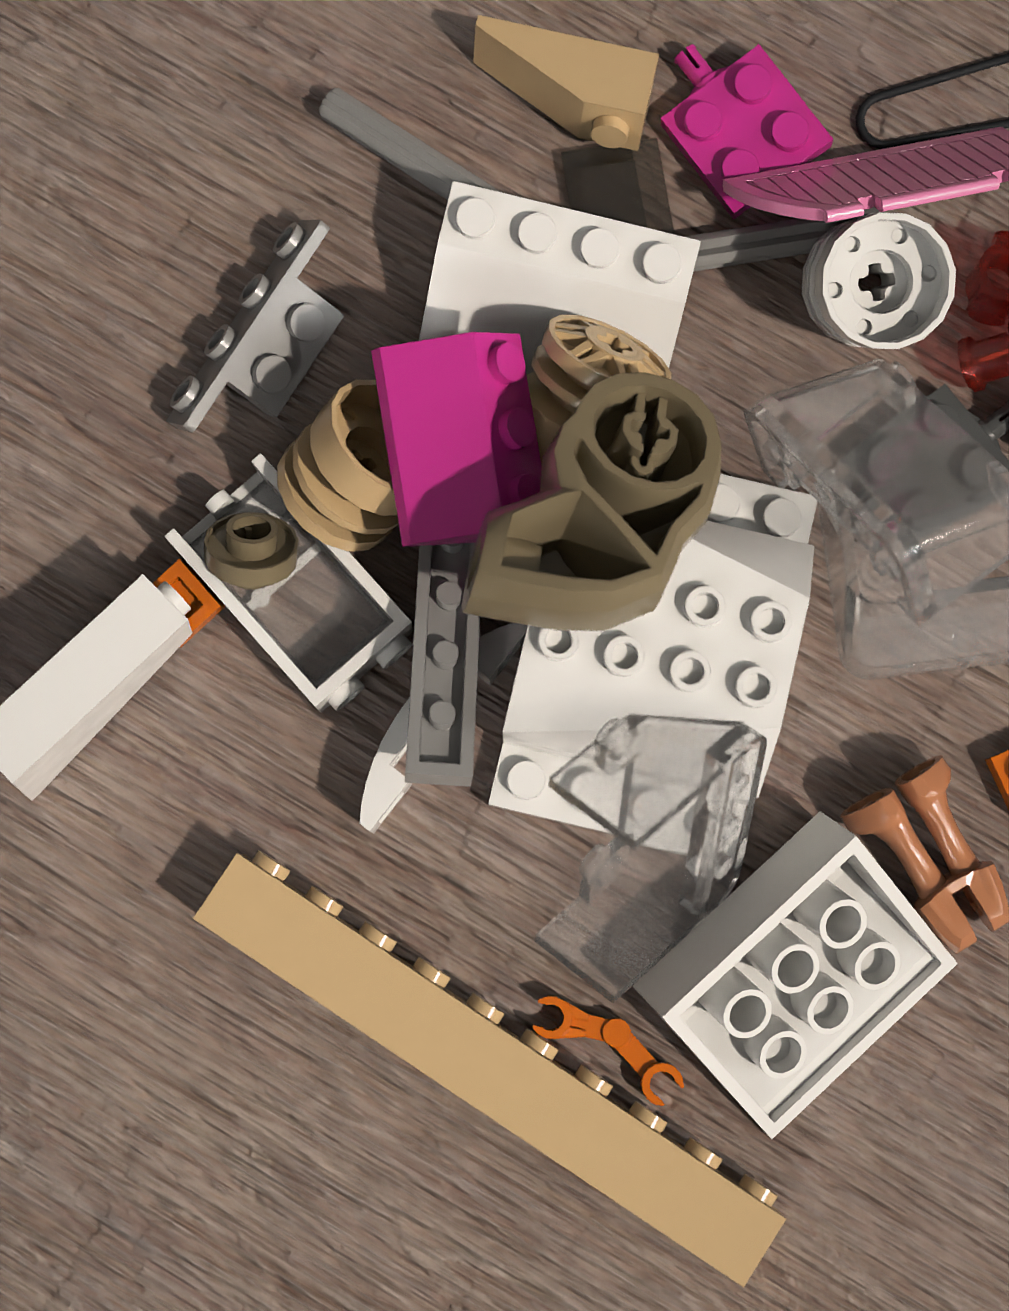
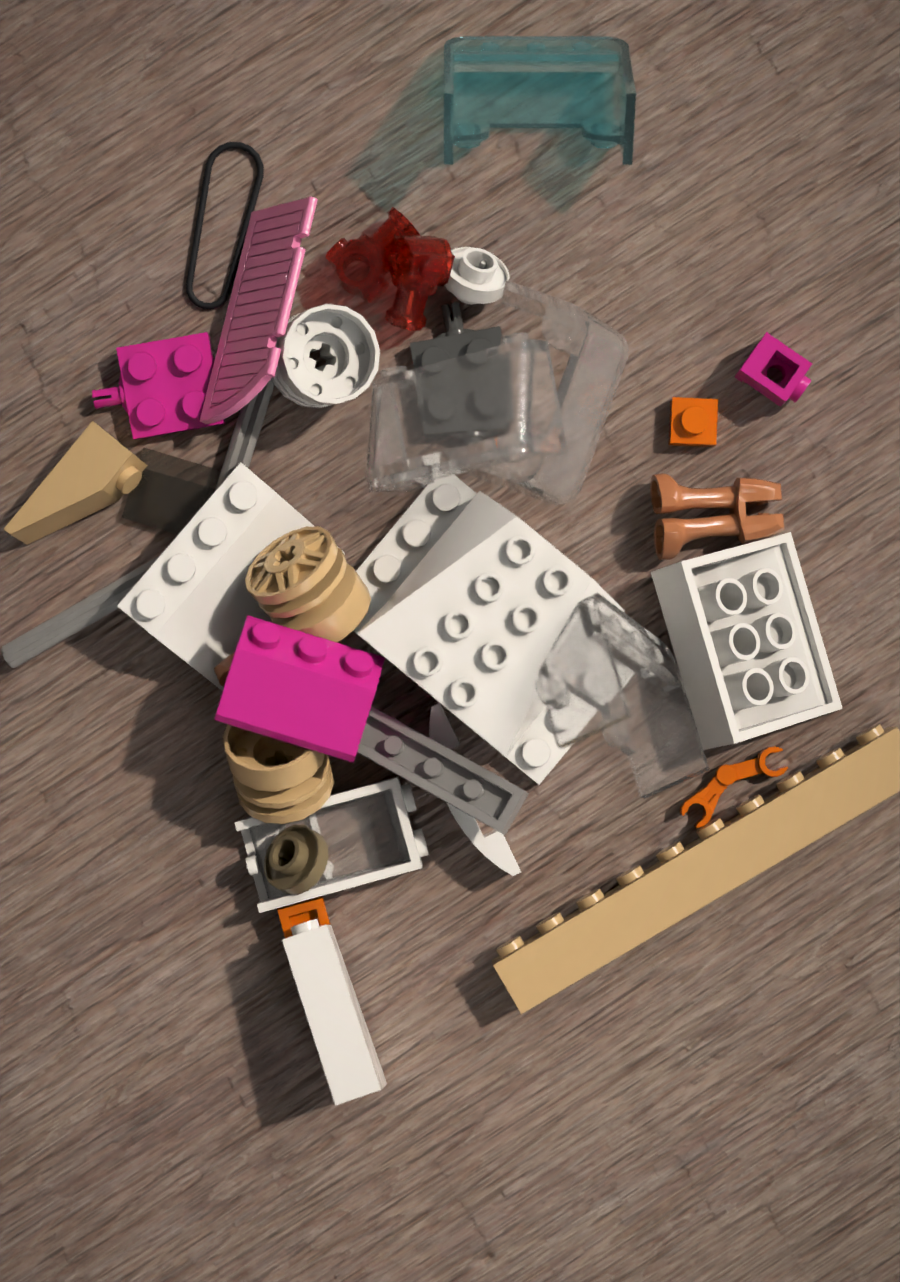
camera: 65 degrees left, 5 degrees up
(269, 339) = (153, 777): light grey bracket -> none
(612, 511) = (405, 618): dark tan piece -> none

